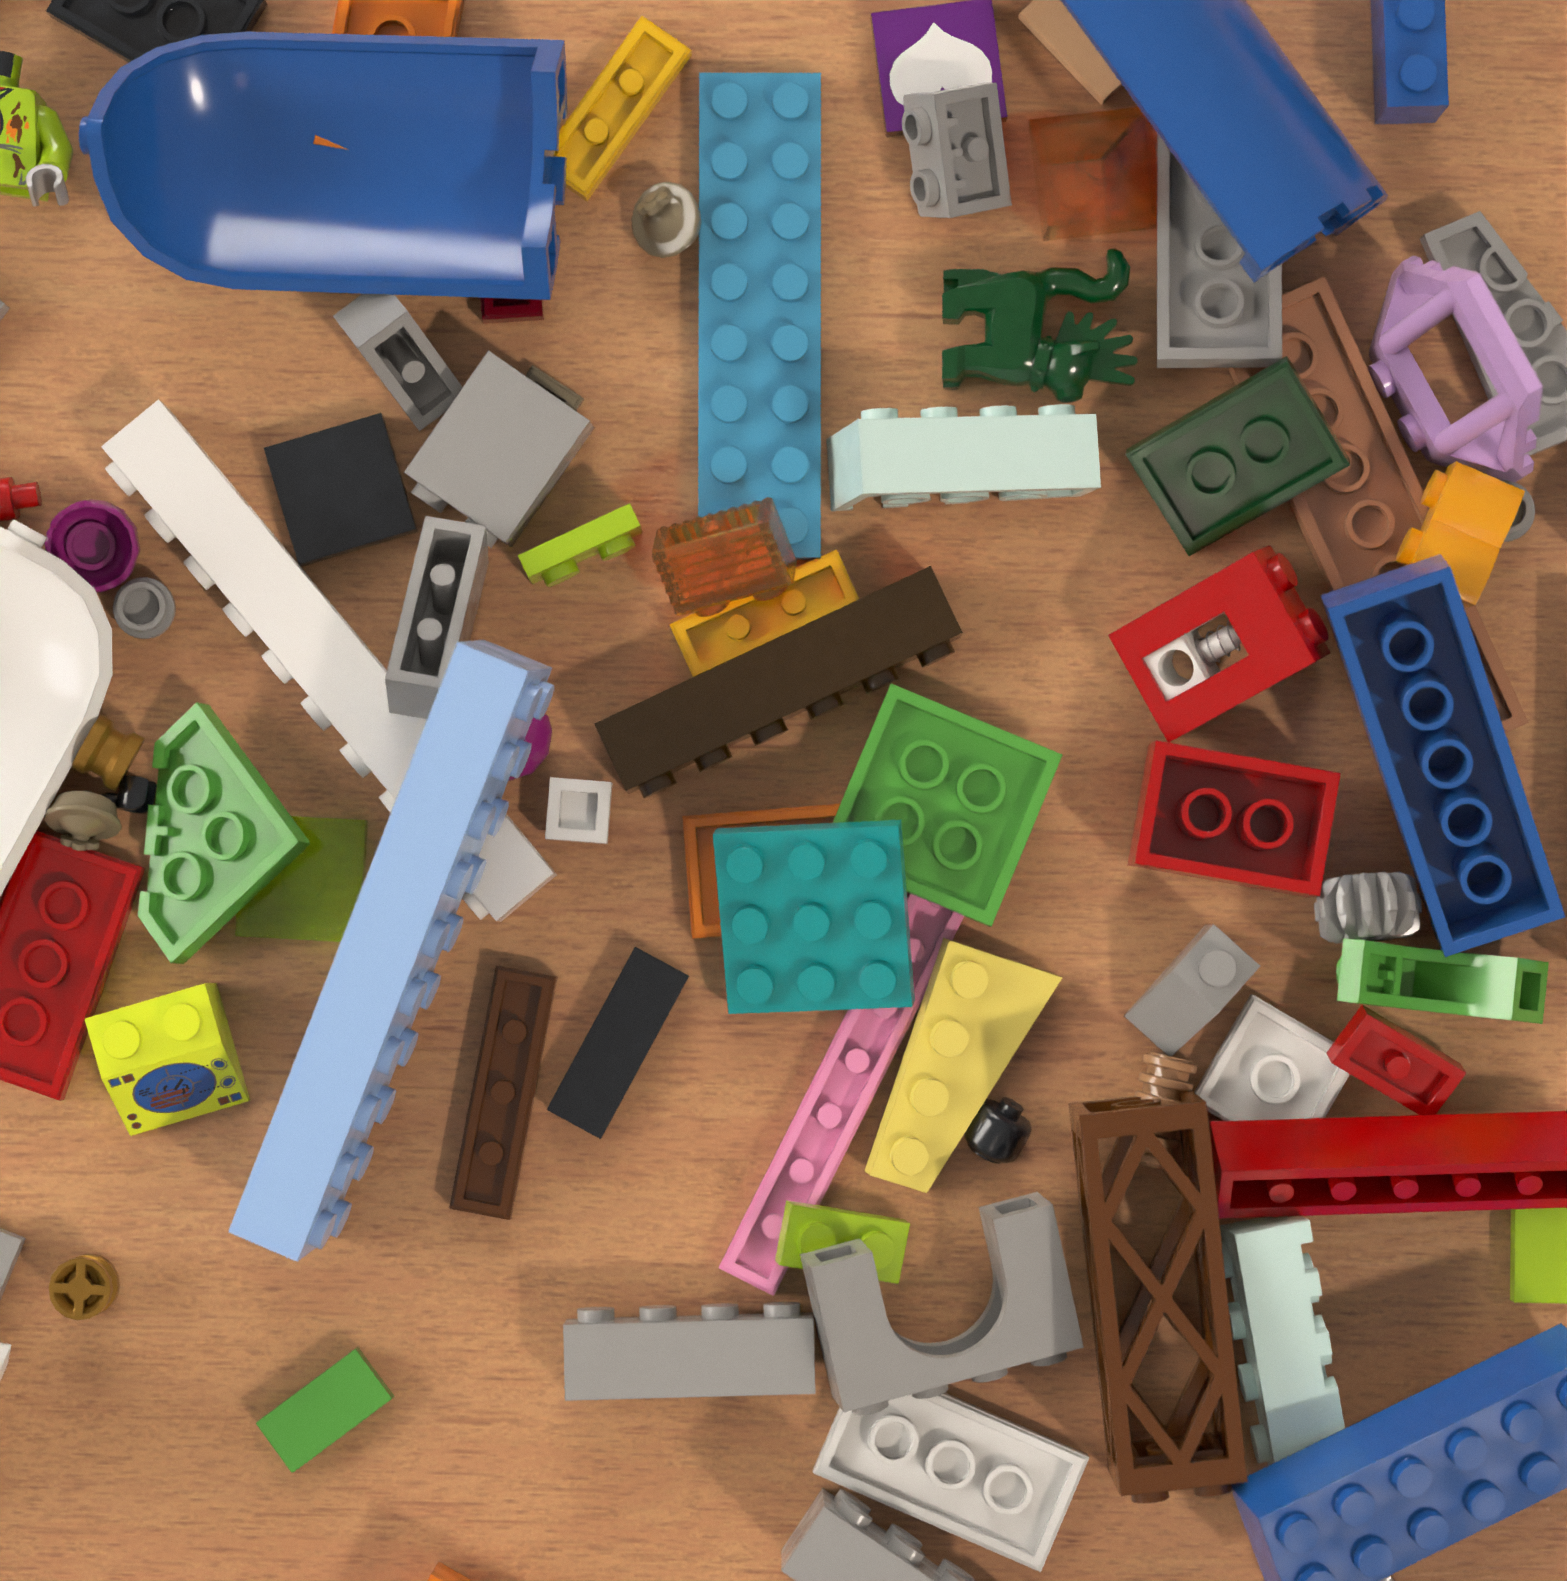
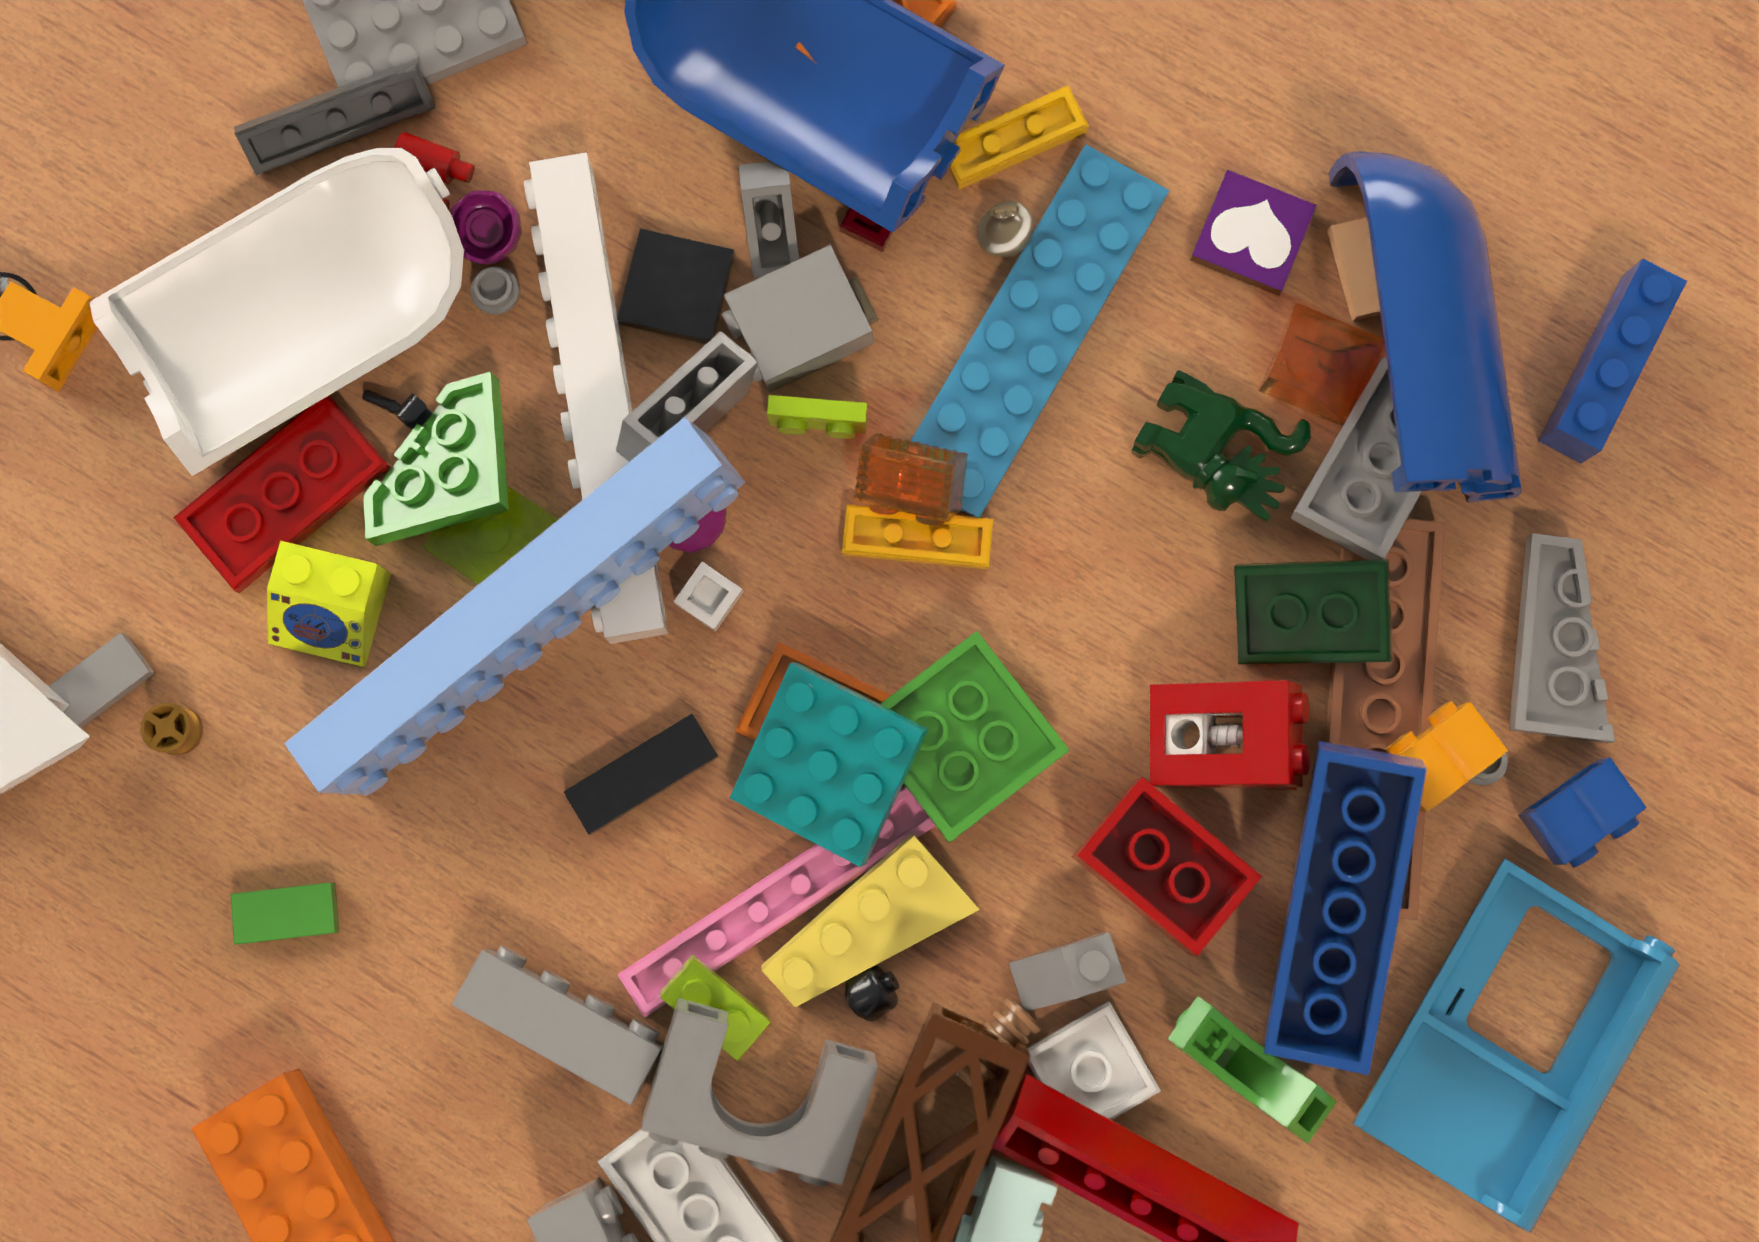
camera: 30 degrees right, 5 degrees down
(83, 819) = (366, 407): dark tan hat -> none
(107, 752) = (410, 371): pearl gold wheel -> none
(503, 1092) = (540, 763): reddish brown tile -> none
(779, 681) = (899, 586): dark brown brick -> none
(956, 151) = (1234, 292): light grey bracket -> none
(963, 456) = (1119, 503): light aqua wedge -> none
(1368, 907) = (1228, 985): light grey gear -> none
(1395, 1062) = (1185, 1110): red plate -> none
(1493, 434) = (1497, 576): lavender windscreen -> none

